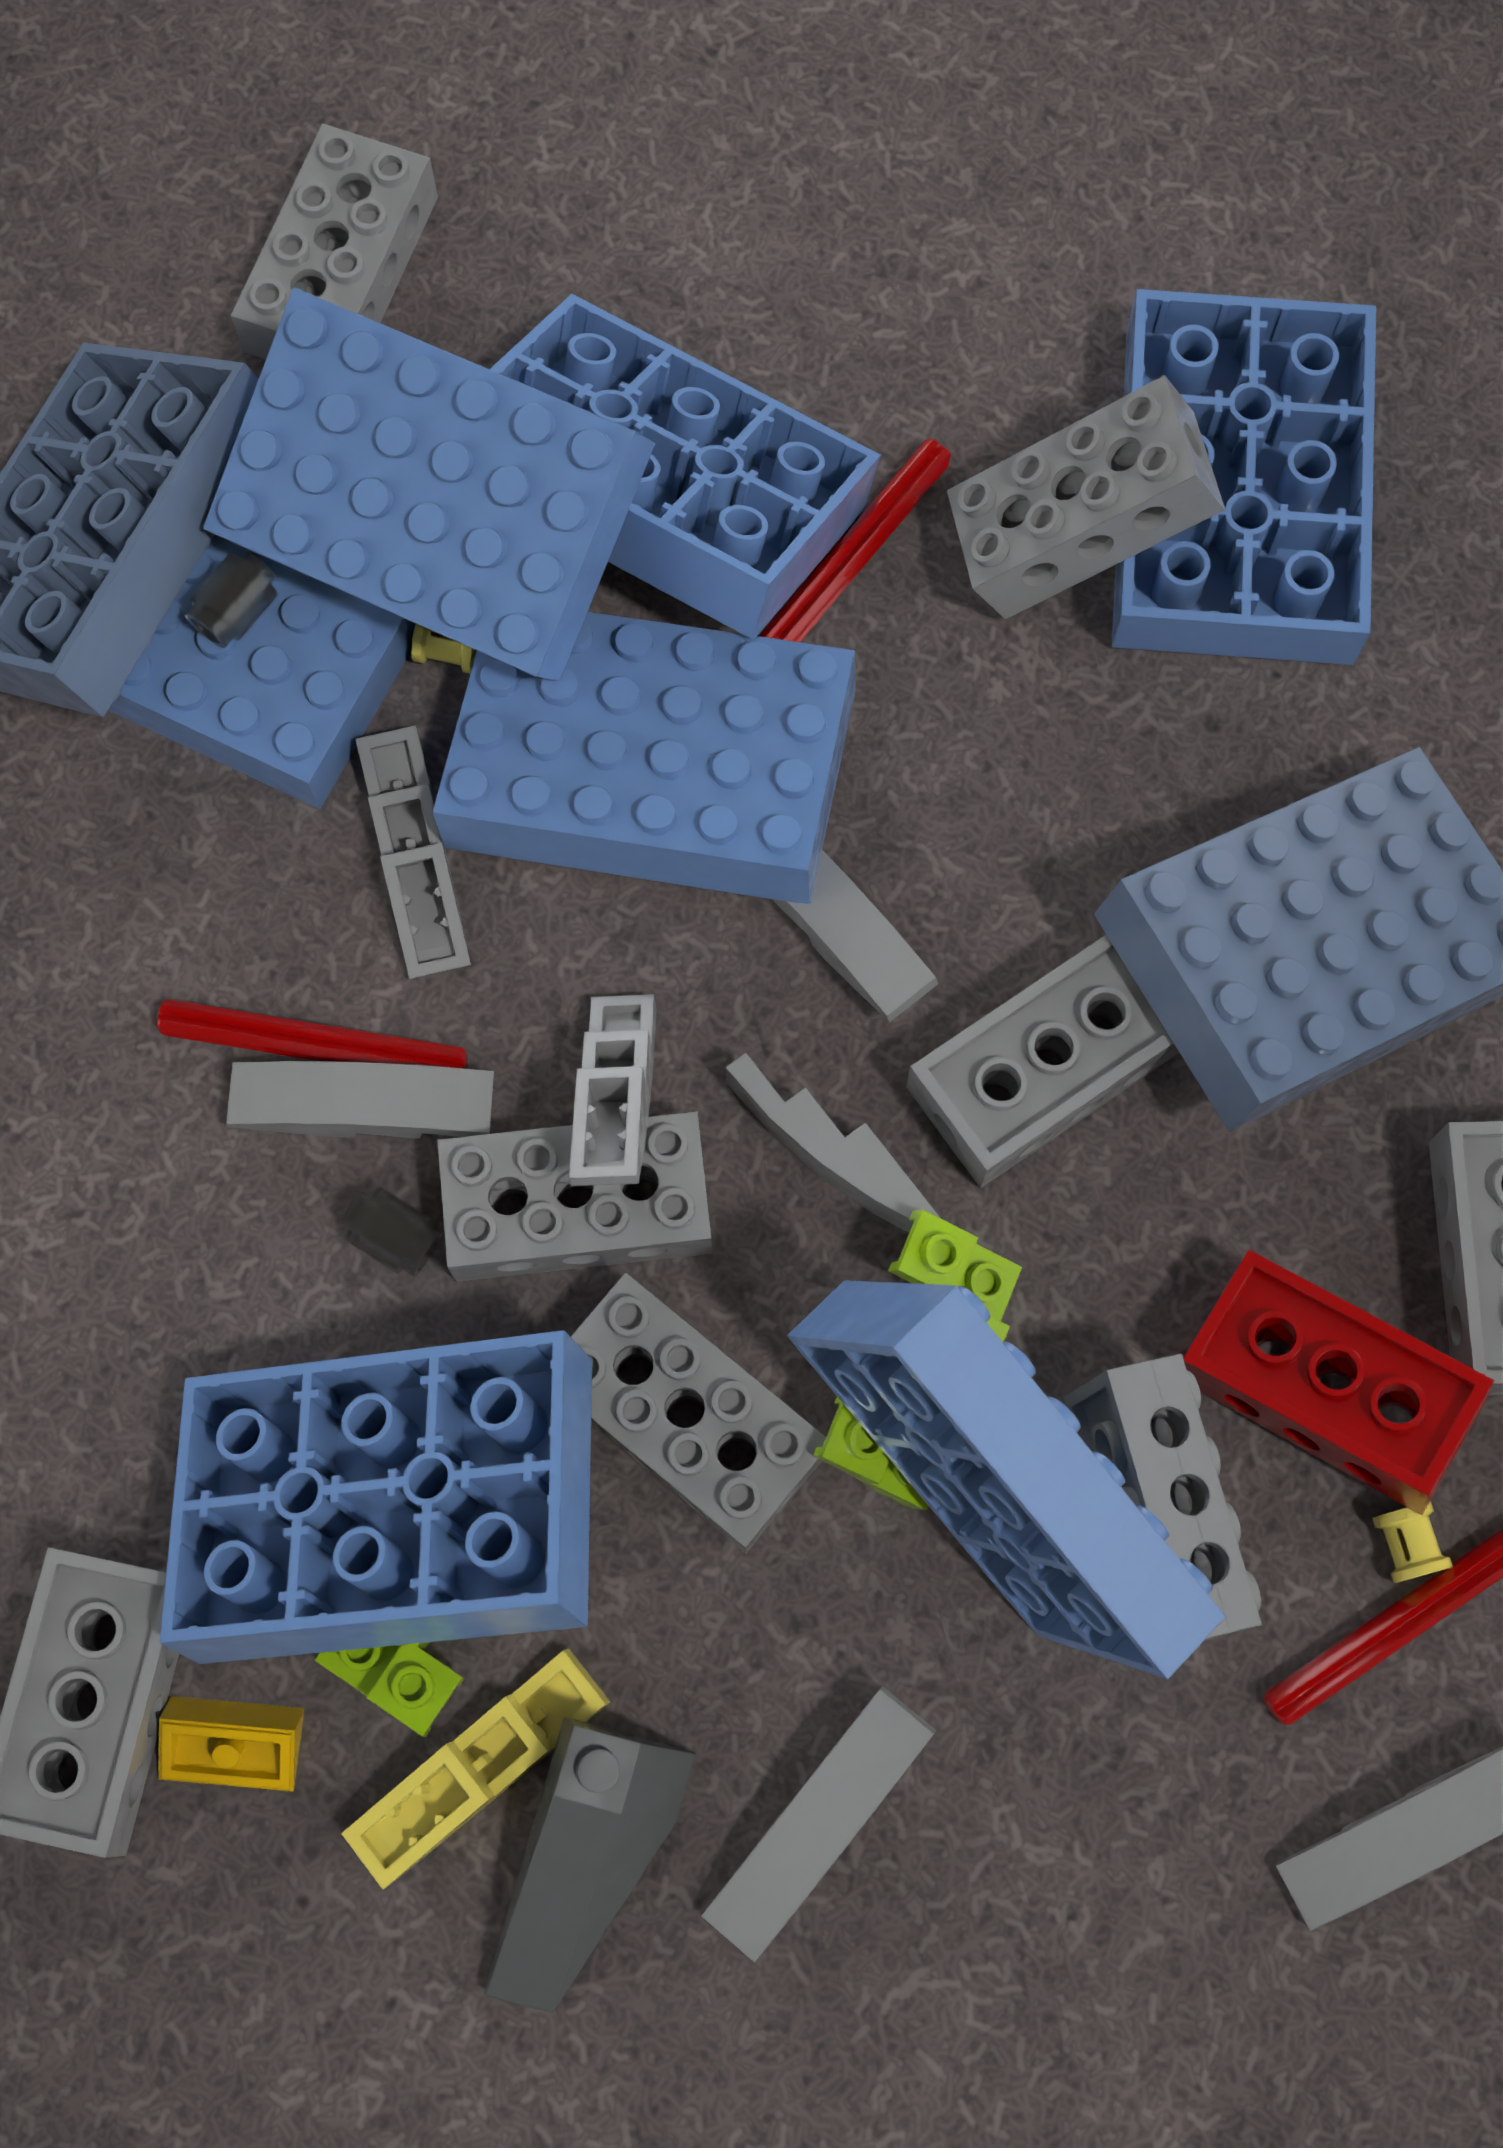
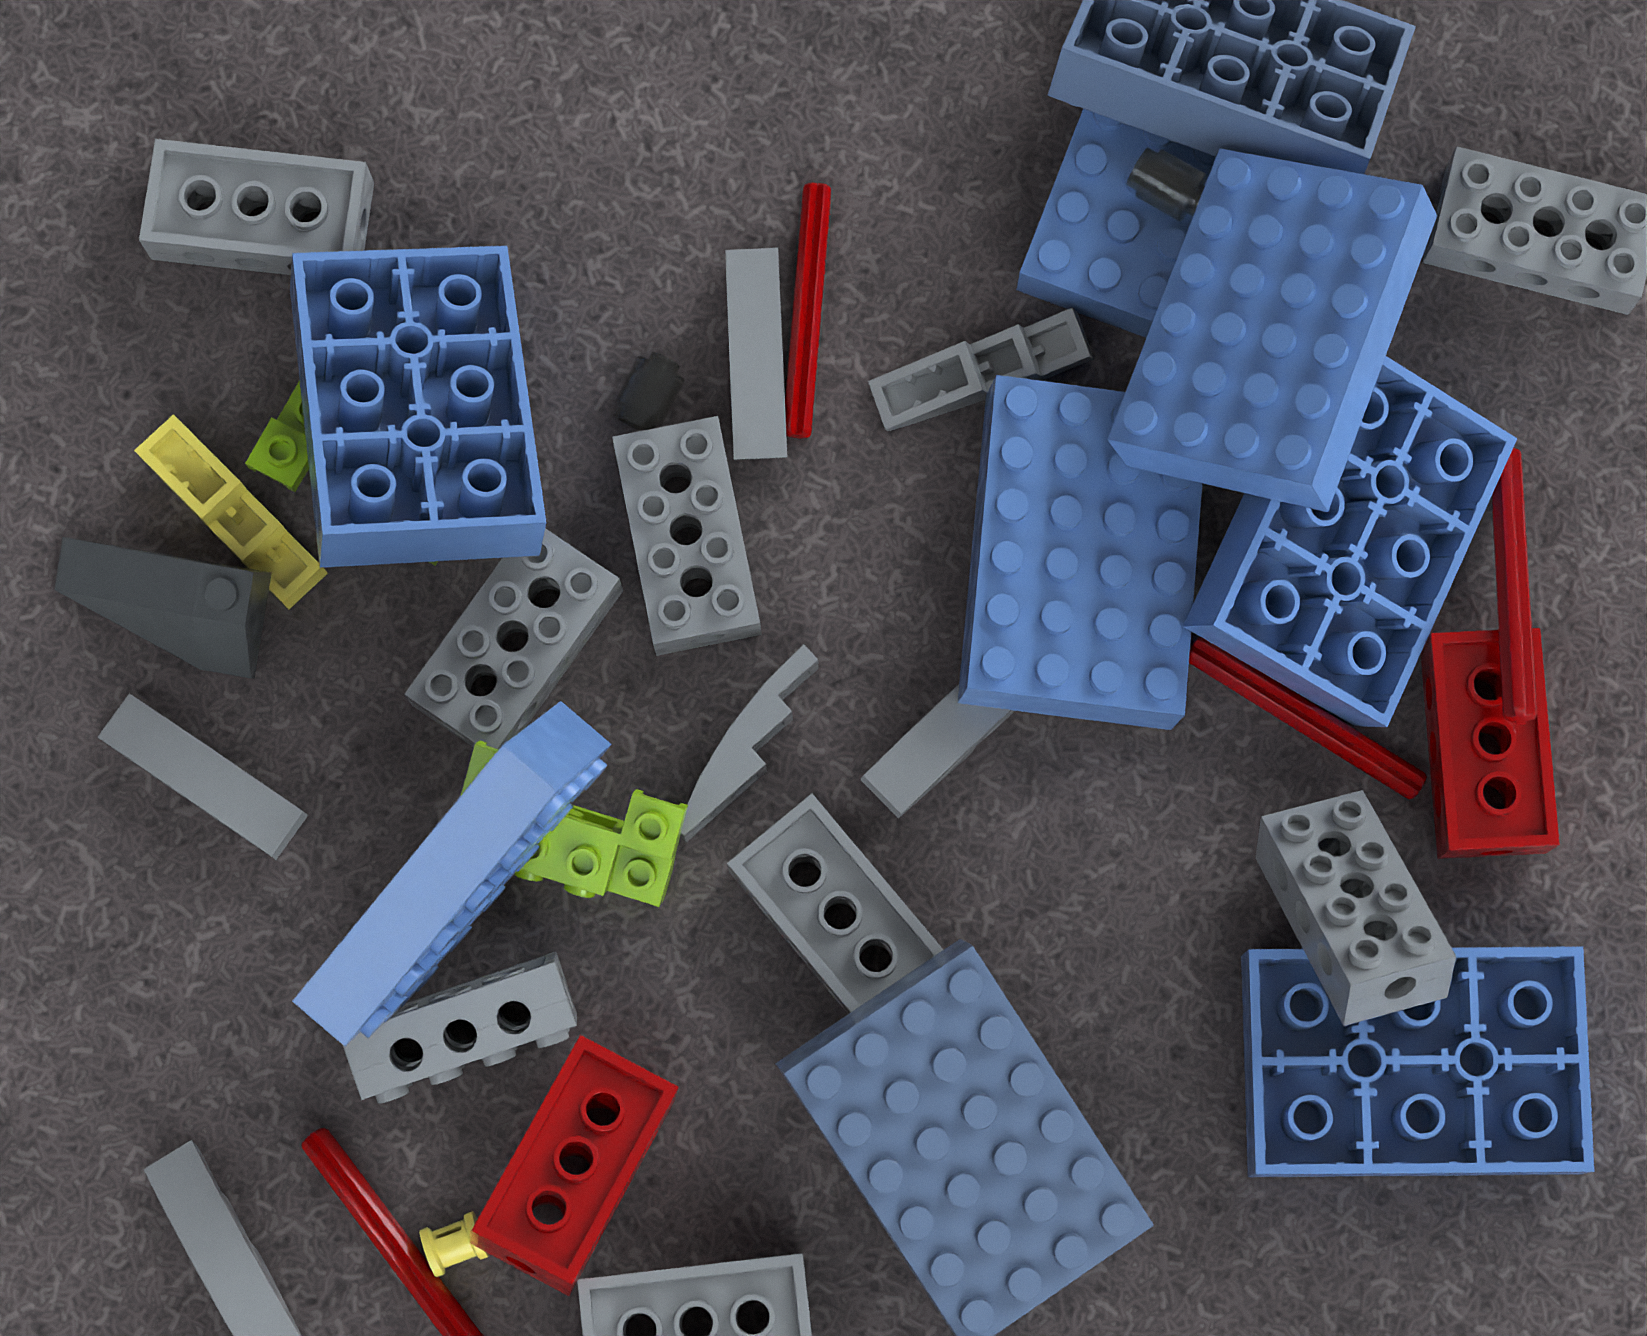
camera: 85 degrees right, 5 degrees up
(229, 1743) = (239, 324): yellow slope -> none
(613, 1091) = (769, 551): light grey slope -> none
(764, 308) = (1513, 594): none -> red axle
(906, 364) = (1462, 768): none -> red brick

